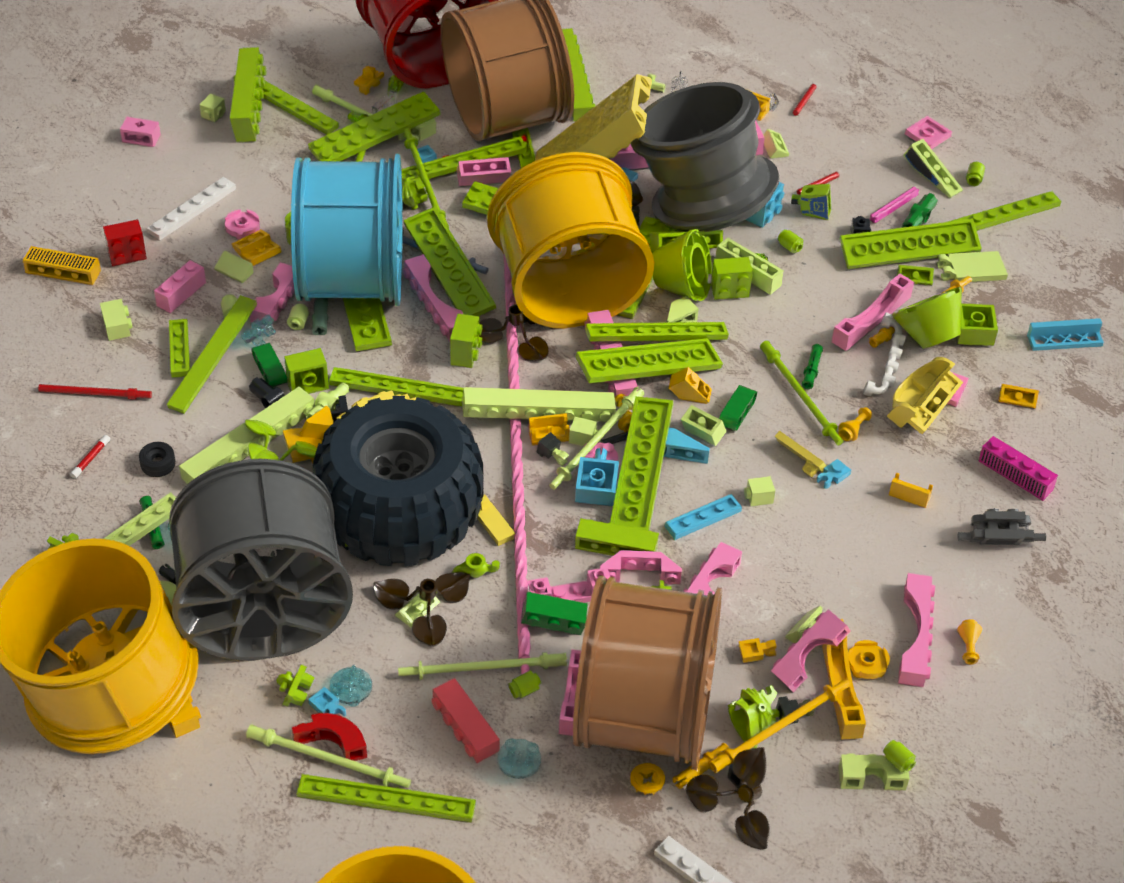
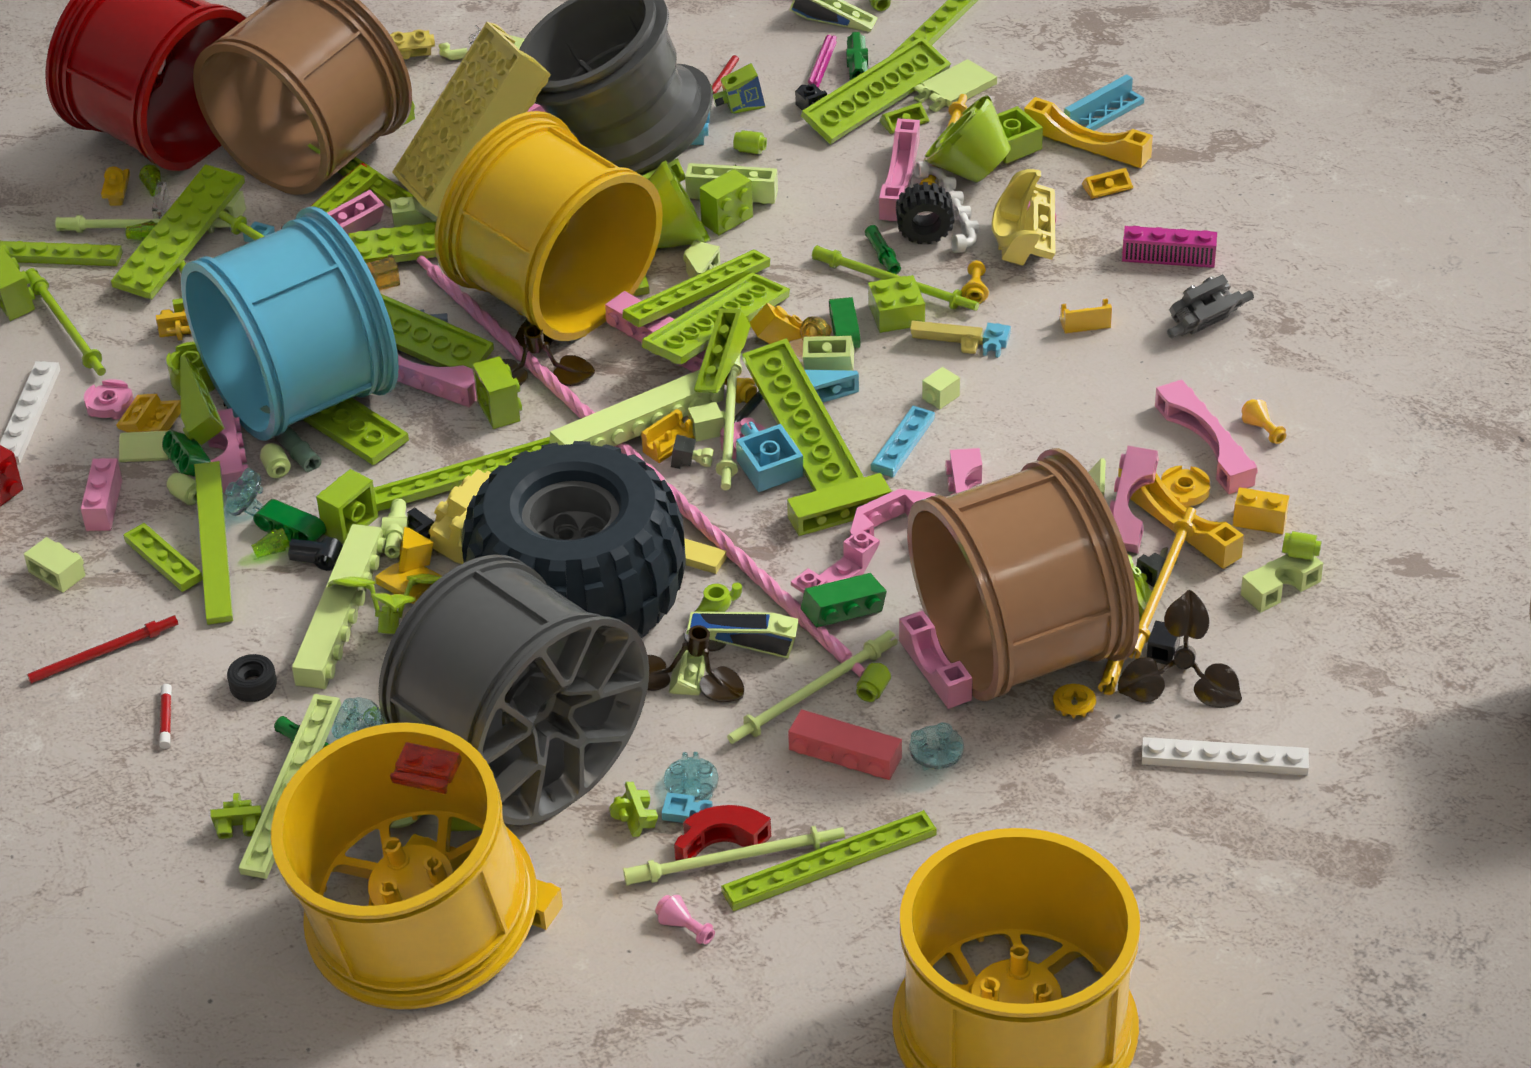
camera: 30 degrees left, 5 degrees down
(120, 590) = (426, 767): none -> clear red plate
(247, 373) = (272, 543): none -> clear neon green cone
(248, 283) = (183, 452): none -> green beam
(256, 775) = (673, 912): none -> bright pink piece
(269, 127) = (90, 358): none -> lime bar
(275, 256) = (197, 407): none -> lime slope
(472, 599) = (751, 630): none -> slope
(473, 220) = (385, 272): none -> clear yellow brick
(624, 64) = (414, 43): none -> light yellow brick
(630, 383) = (723, 349): none -> lime slope
(712, 403) = (814, 326): none -> clear yellow brick
(784, 411) = (895, 303): none -> lime brick
(857, 354) = (924, 227): none -> black tyre
(904, 710) = (1260, 510): none -> yellow brick
(1052, 374) = (1127, 147): none -> yellow arch

